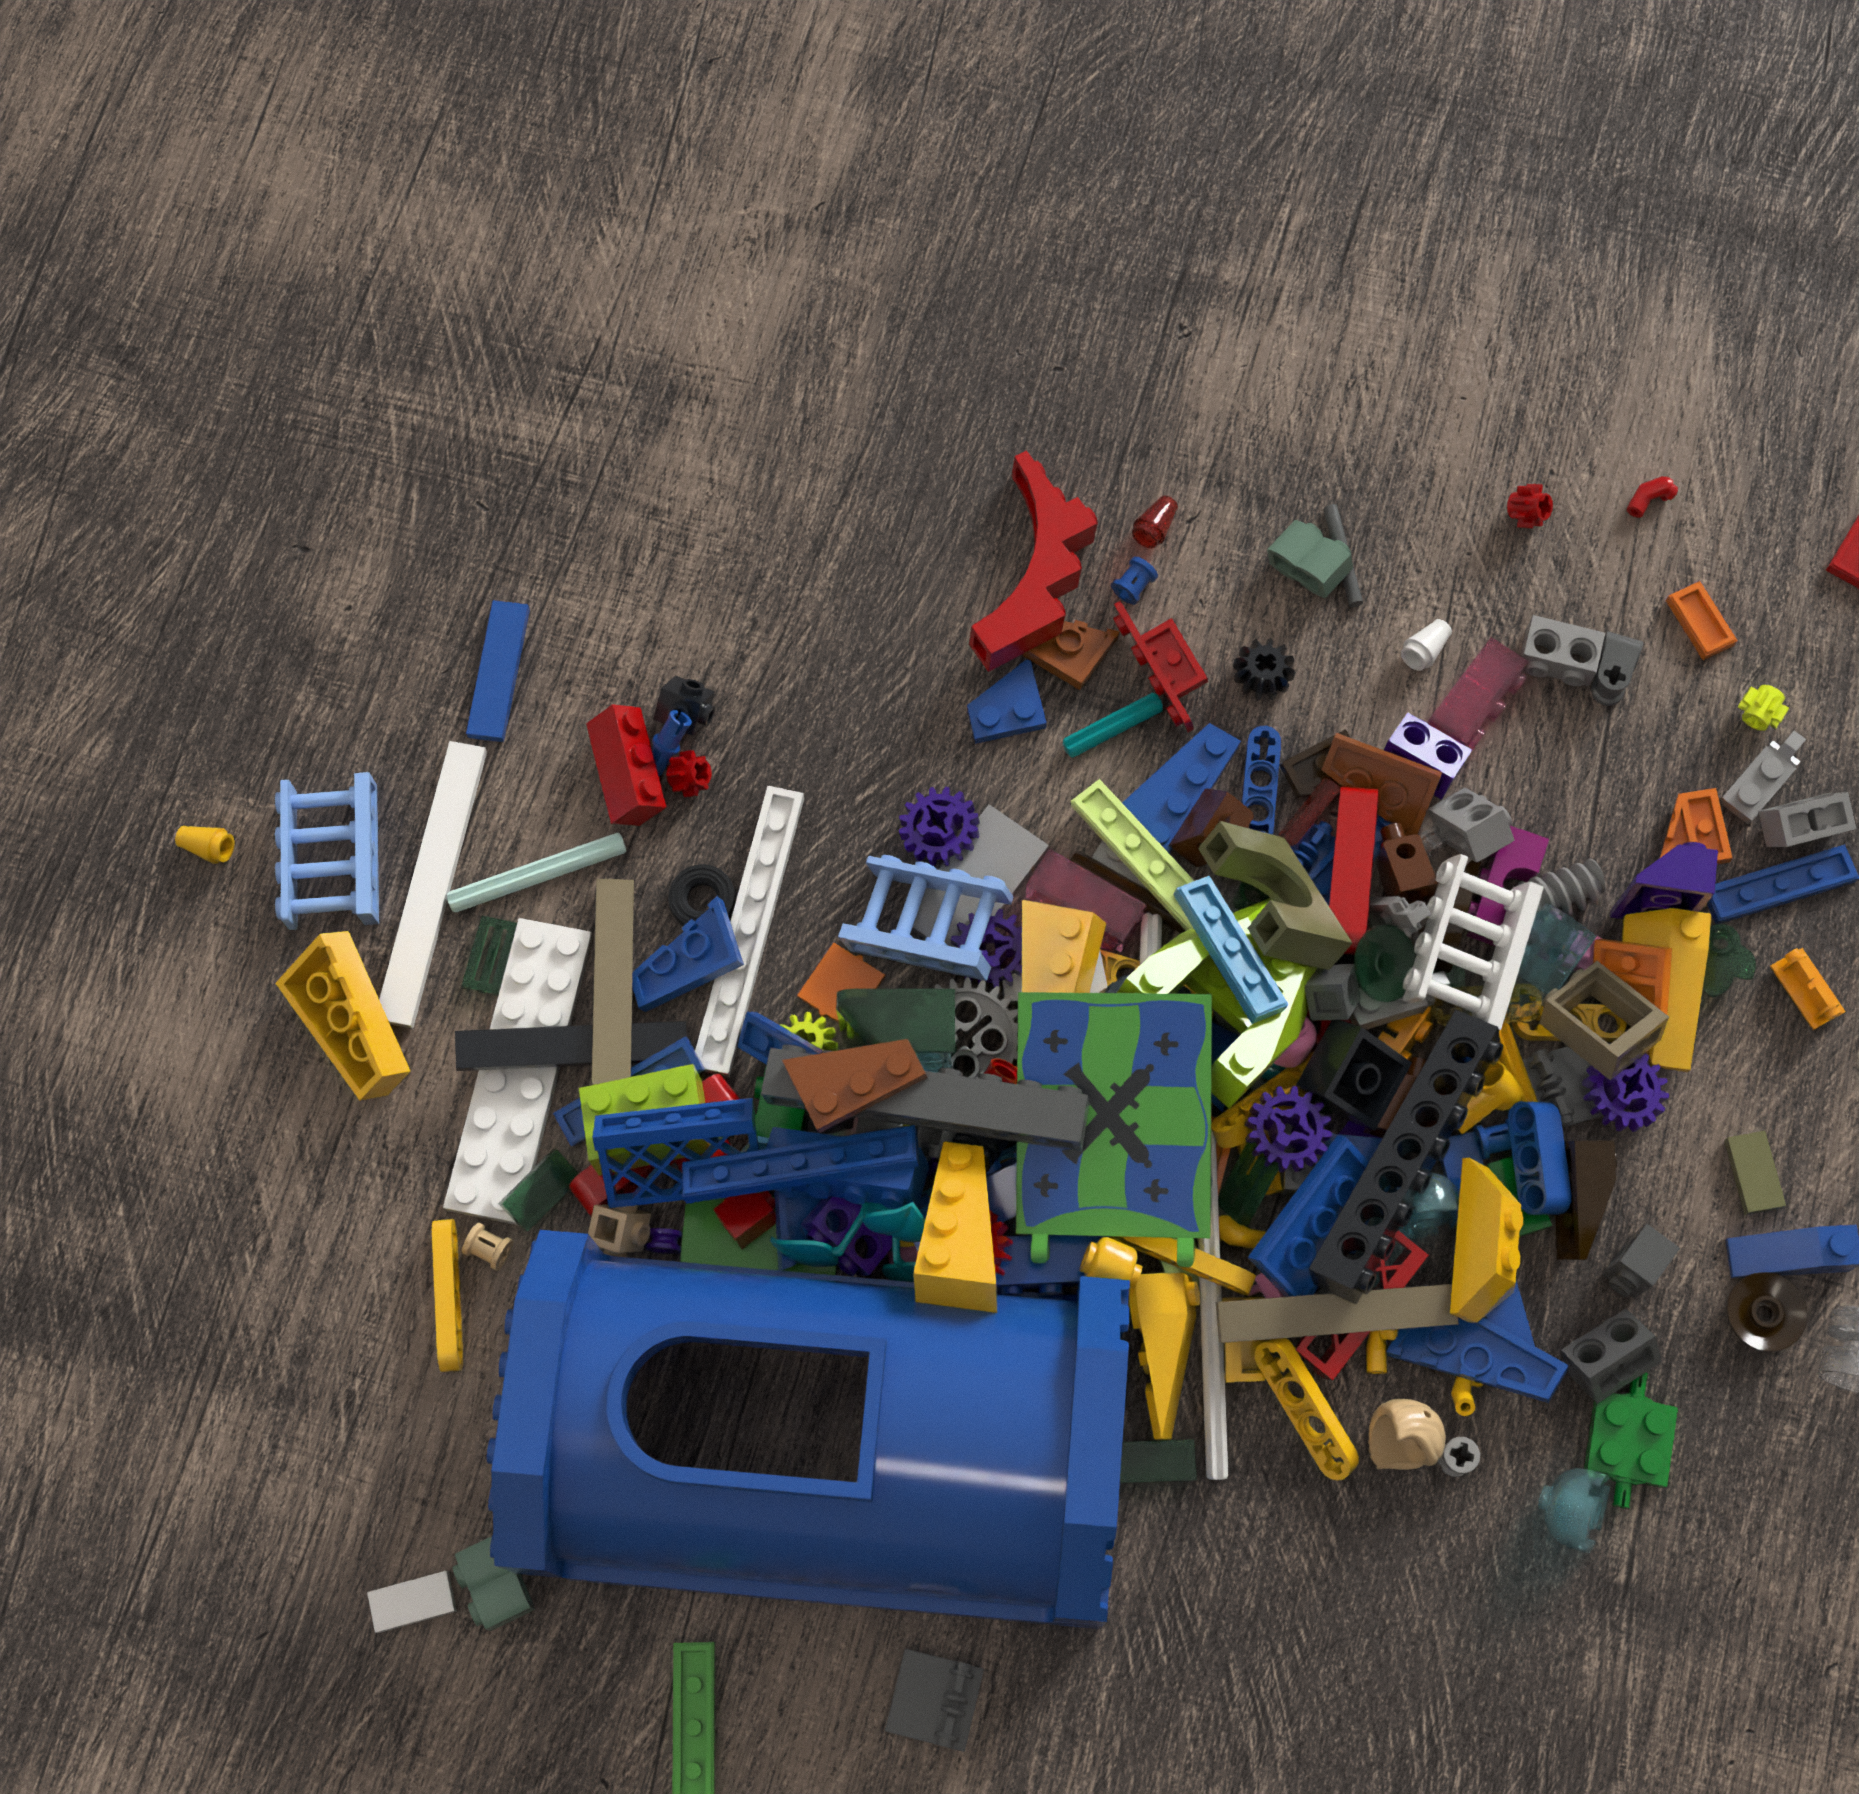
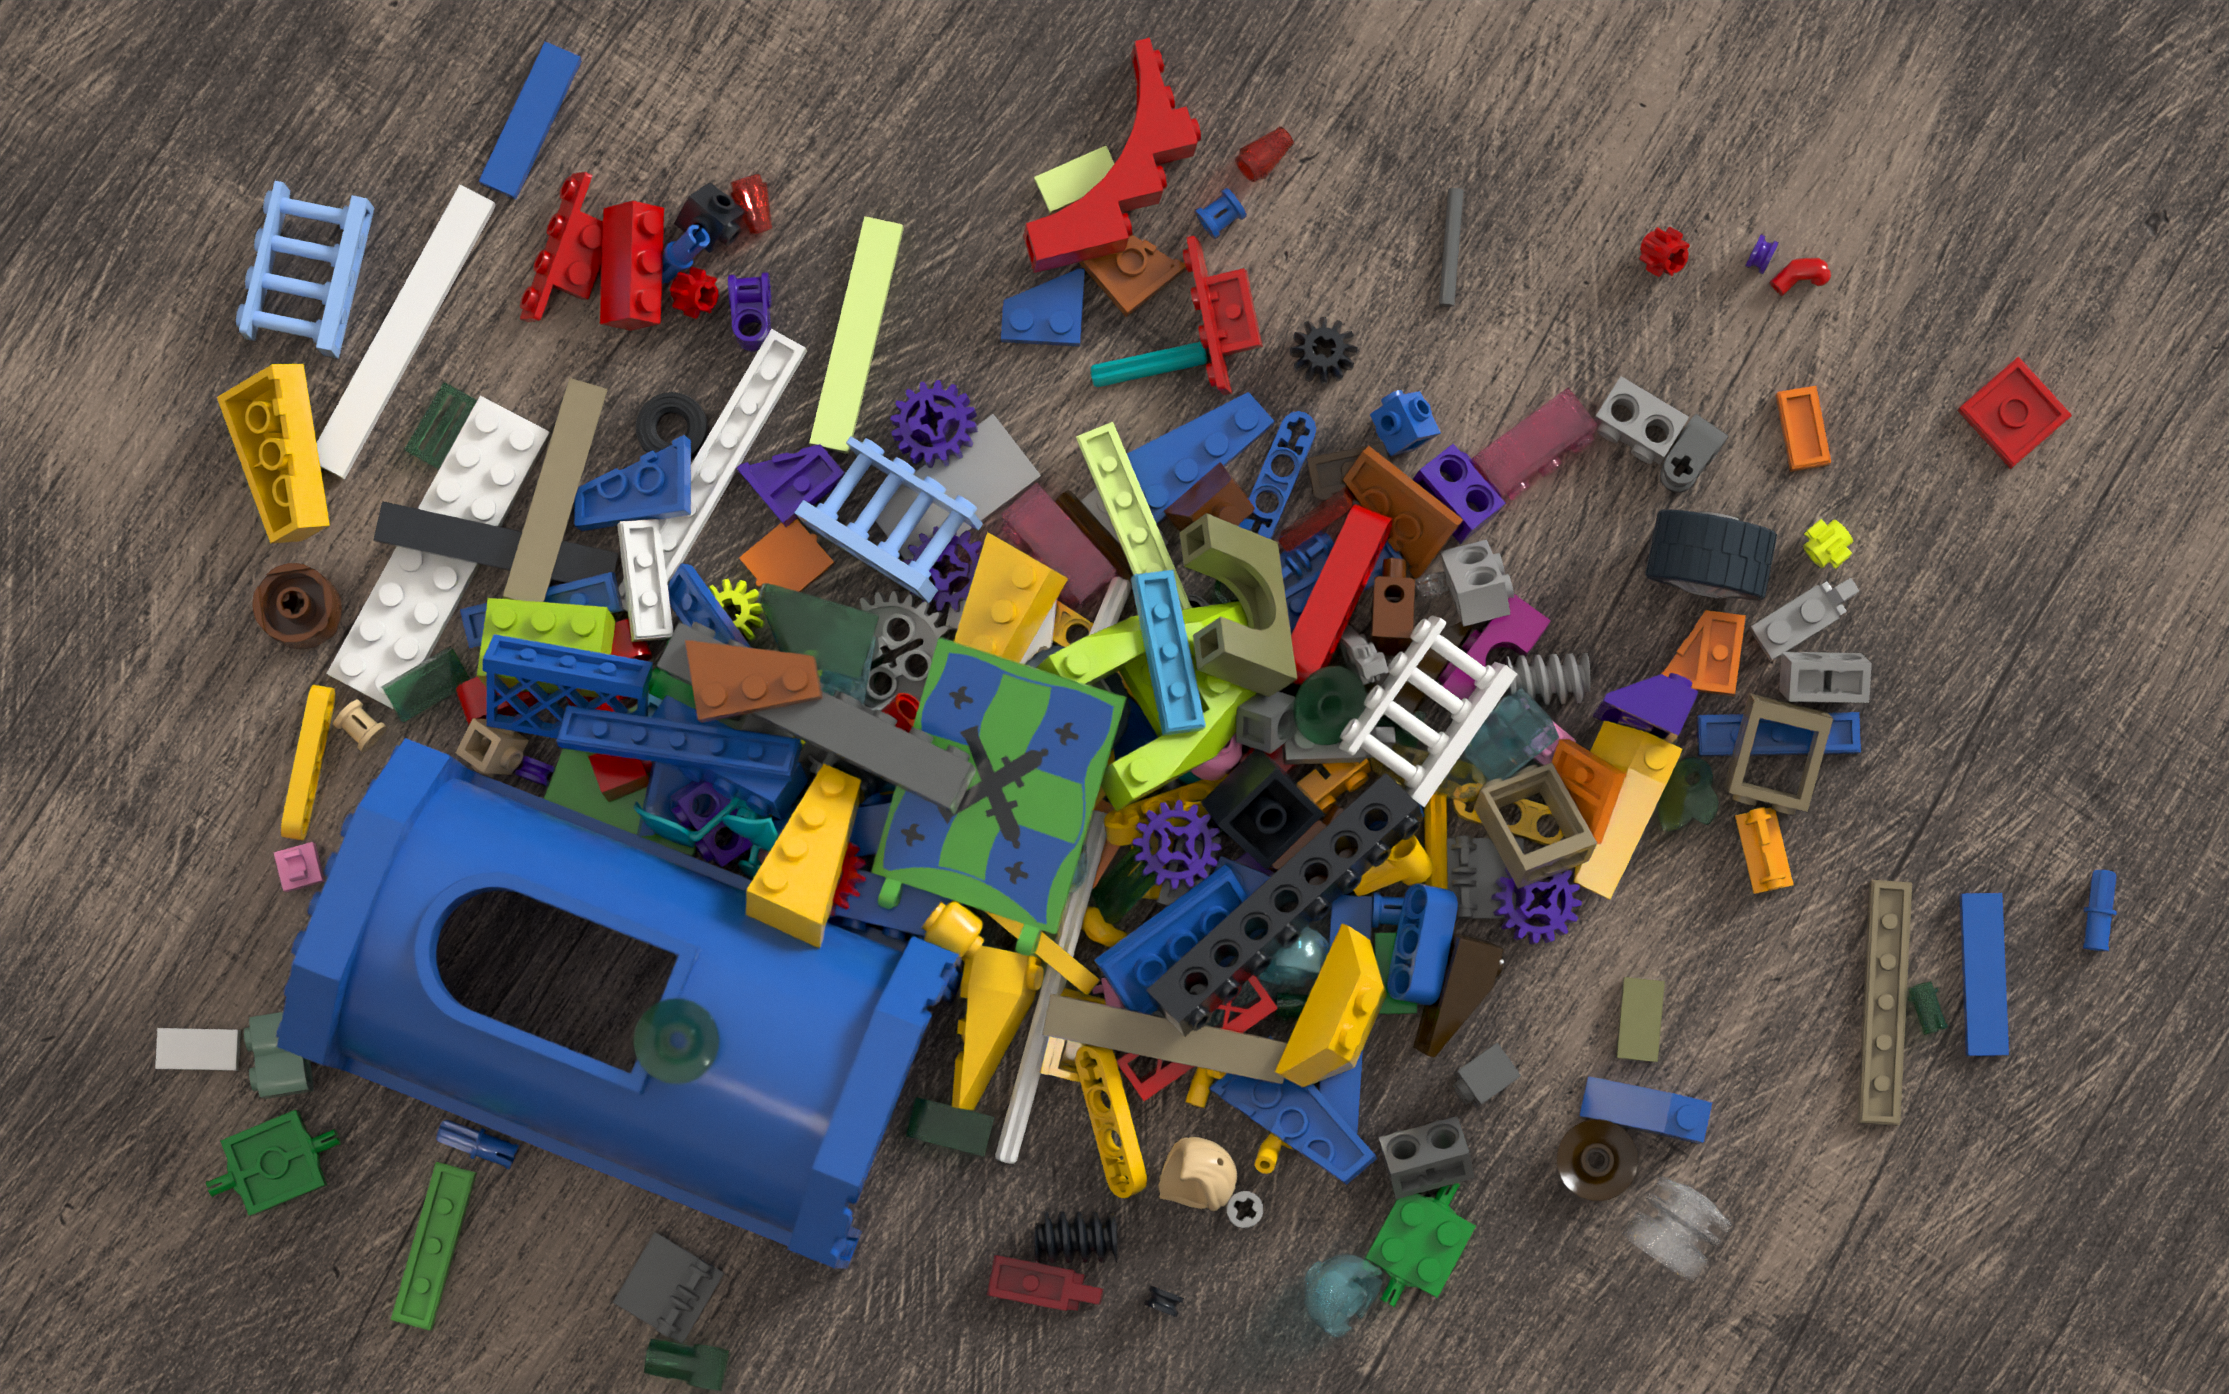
camera: 20 degrees right, 10 degrees up
(206, 842) = (184, 223): yellow cone -> none
(378, 1152) = (280, 592): none -> reddish brown brick
(464, 1397) = (299, 867): none -> bright pink tile
(515, 1692) = (273, 1162): none -> green plate
(536, 872) = (511, 351): light aqua axle -> none
(566, 774) = (571, 252): none -> red bracket
(708, 1612) = (477, 1143): none -> blue axle
(717, 677) = (753, 197): none -> clear red cone
(719, 1035) = (645, 580): none -> white tile
(743, 771) = (750, 303): none -> dark purple piece
(824, 910) = (793, 478): none -> dark purple wing
(844, 773) = (856, 334): none -> yellowish green tile
(890, 1459) = (658, 1053): none -> dish
(984, 1769) = (697, 1364): none -> clear green piece
(995, 587) = (1073, 179): none -> yellowish green tile
(1290, 1587) = (1040, 1284): none -> dark red hinge
(1310, 558) = (1412, 242): sand green brick -> none
(1311, 1529) = (1076, 1237): none -> black piece
(1357, 707) = (1404, 422): none -> blue brick
(1412, 1568) = (1163, 1301): none -> black bush
(1424, 647) = (1503, 372): white cone -> none
(1439, 1251) = (1289, 1004): none -> clear green pin
(1612, 486) = (1762, 254): none -> dark purple bush
(1671, 739) = (1711, 554): none -> black wheel
(1760, 897) = (1786, 713): none -> dark tan window

